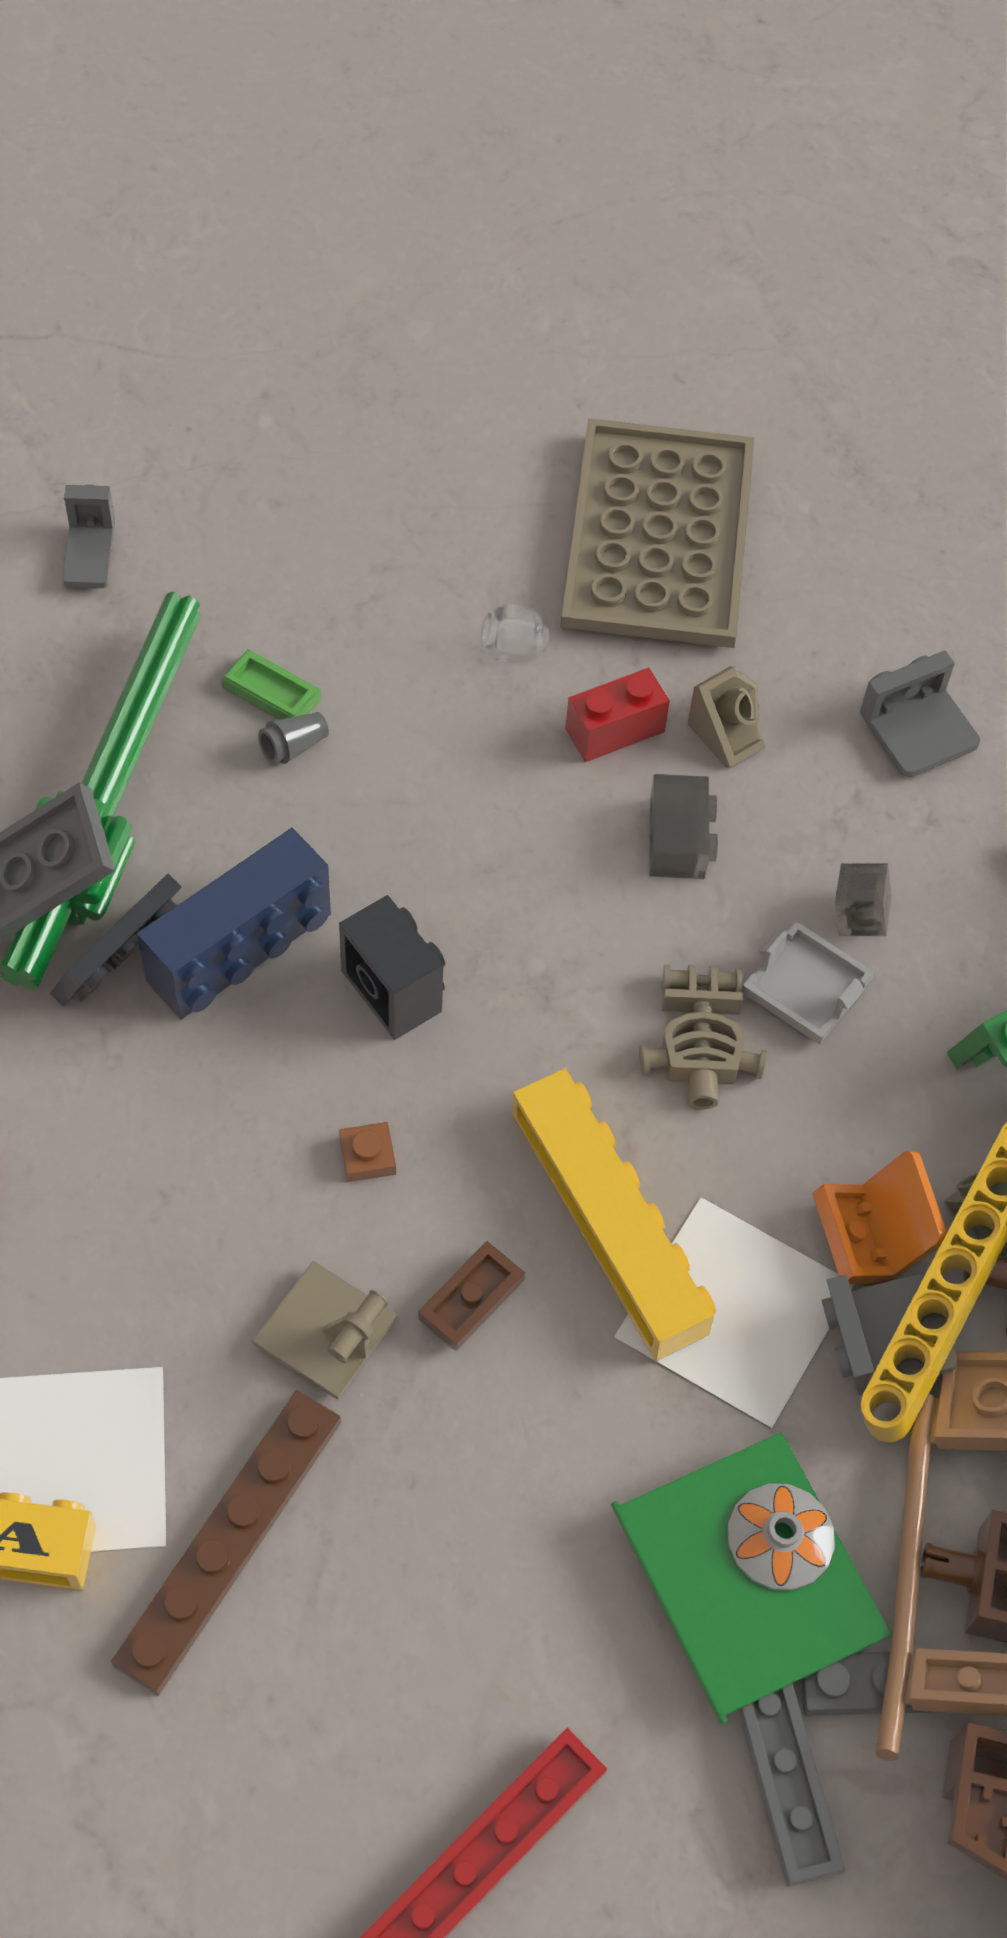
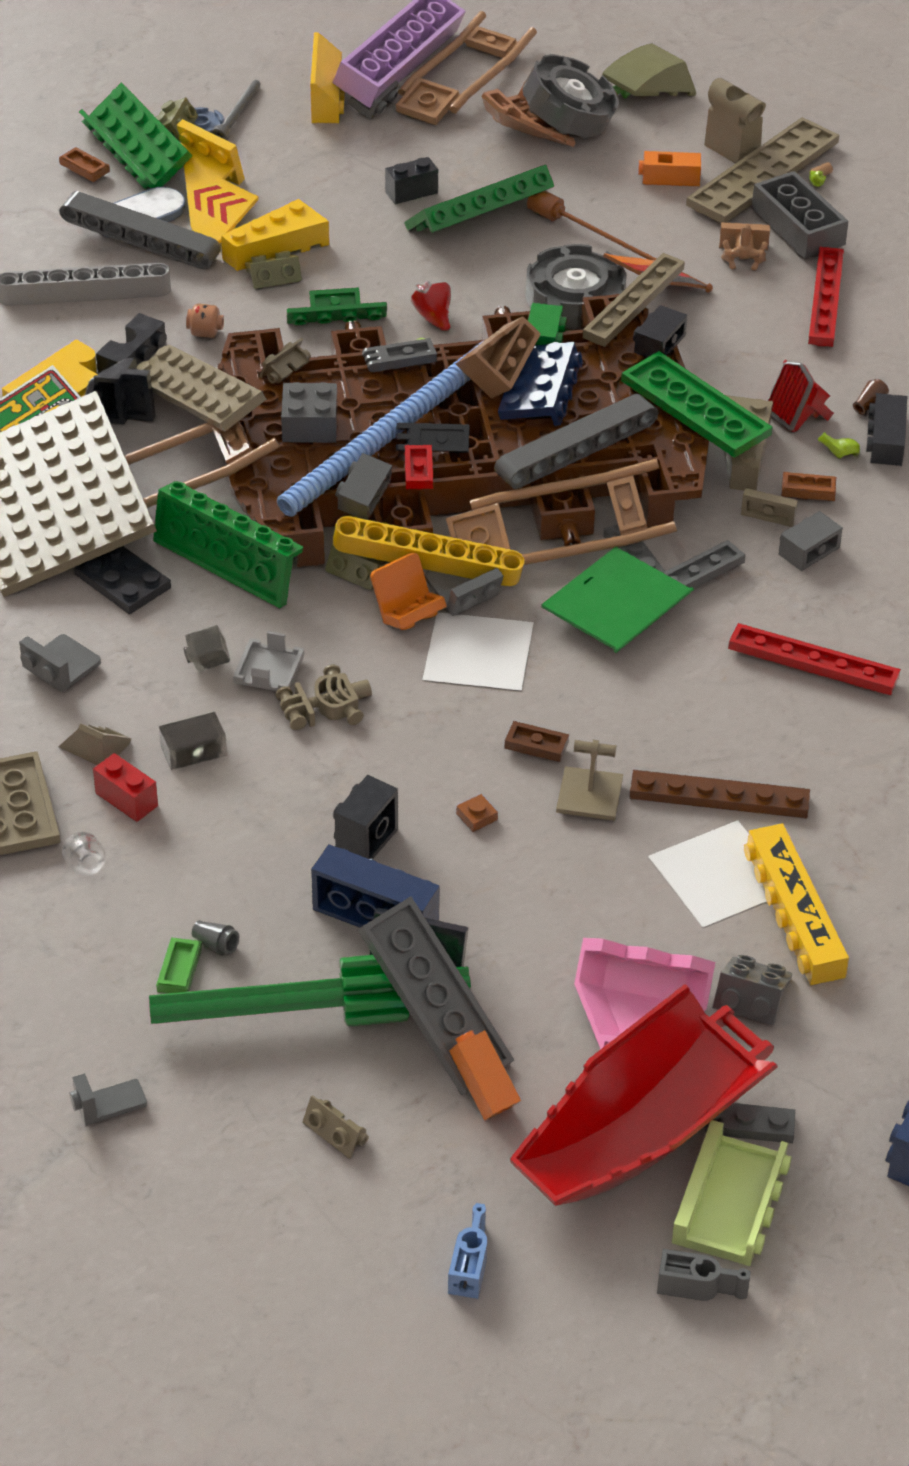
camera: 110 degrees left, 15 degrees down
(613, 1215) = (457, 700): yellow brick -> none
(777, 1561) = (594, 590): light grey dish -> none

